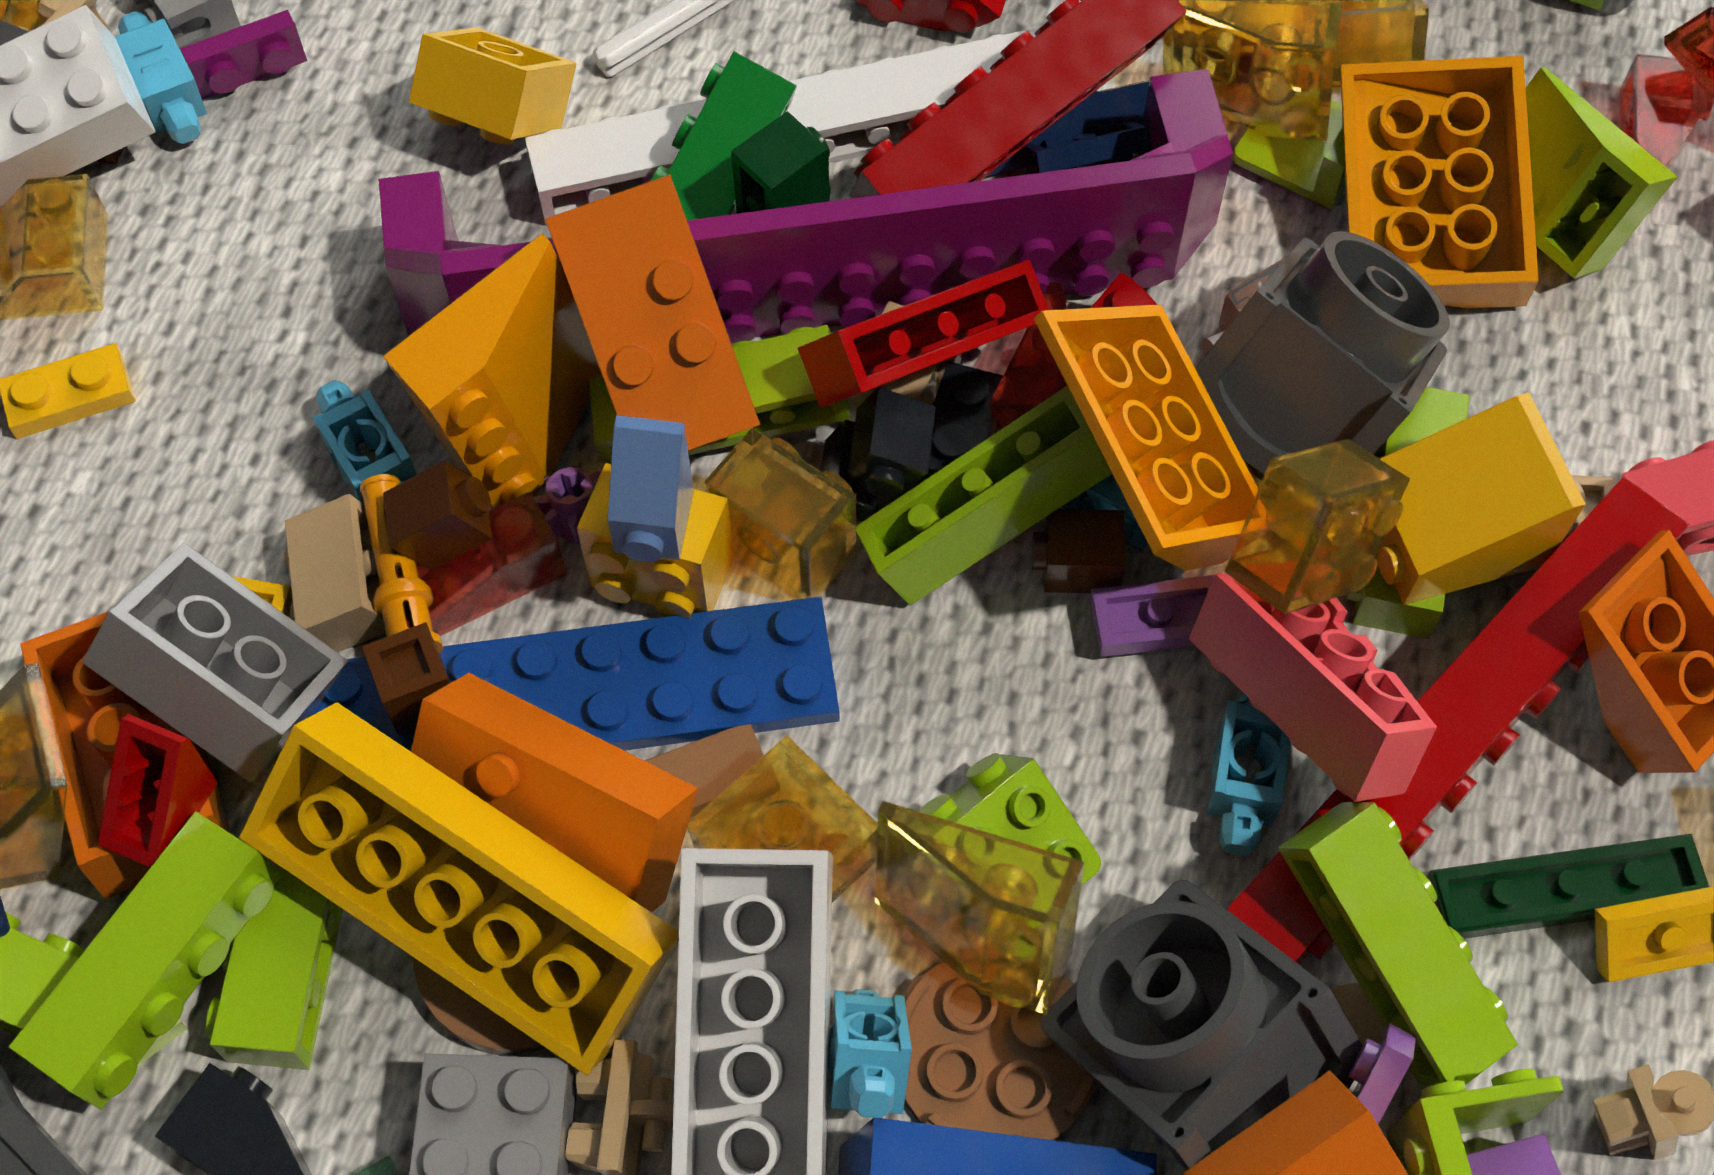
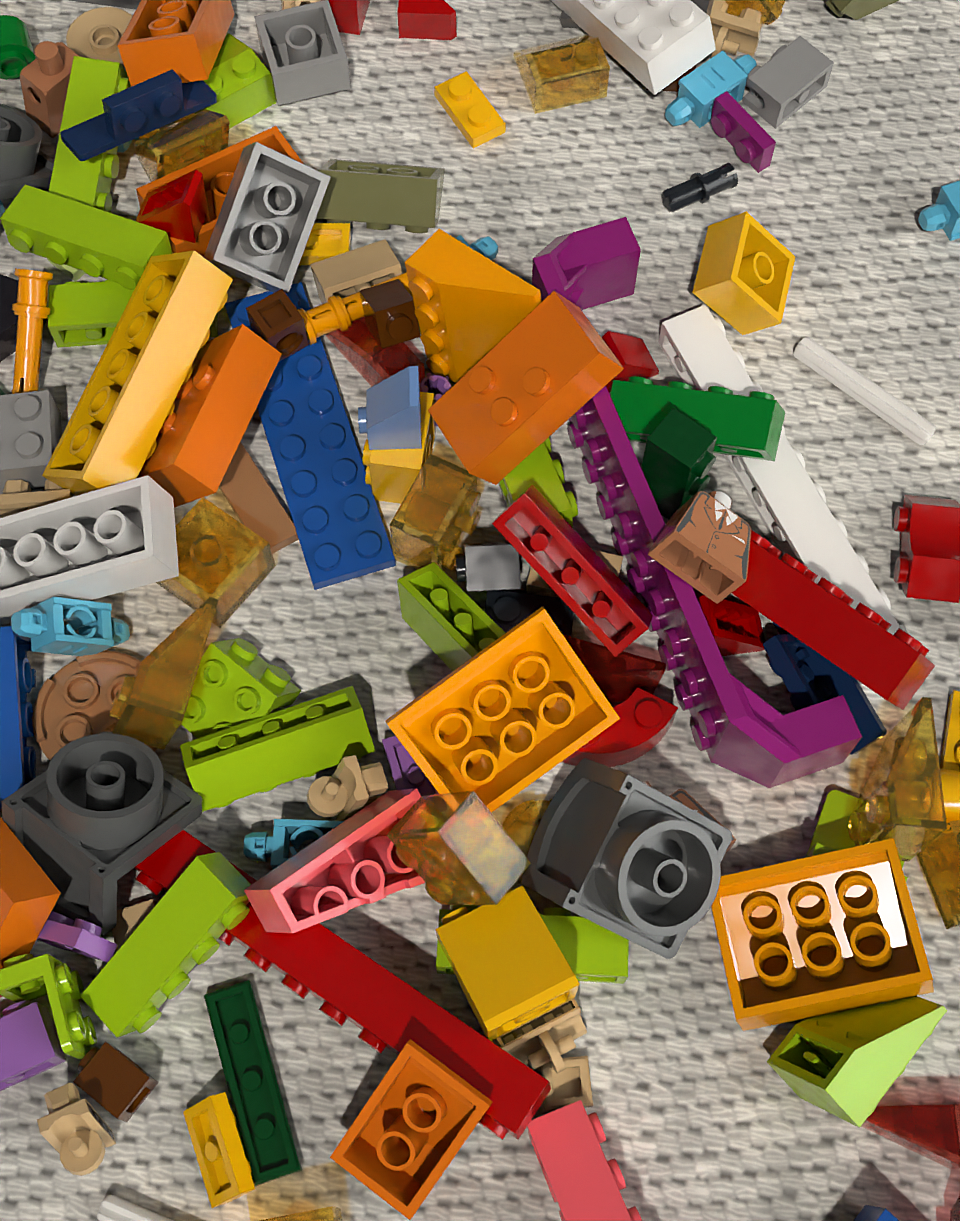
camera: 80 degrees right, 5 degrees up
(194, 492) = (382, 195): none -> olive slope
(265, 1068) = (31, 311): none -> light orange pin
(316, 123) = (699, 188): none -> black axle
(948, 146) = (706, 545): none -> nougat torso
(1101, 777) = (277, 748): none -> lime brick
(1183, 686) = (347, 790): none -> tan hips
(1584, 1057) = (114, 1081): none -> reddish brown brick

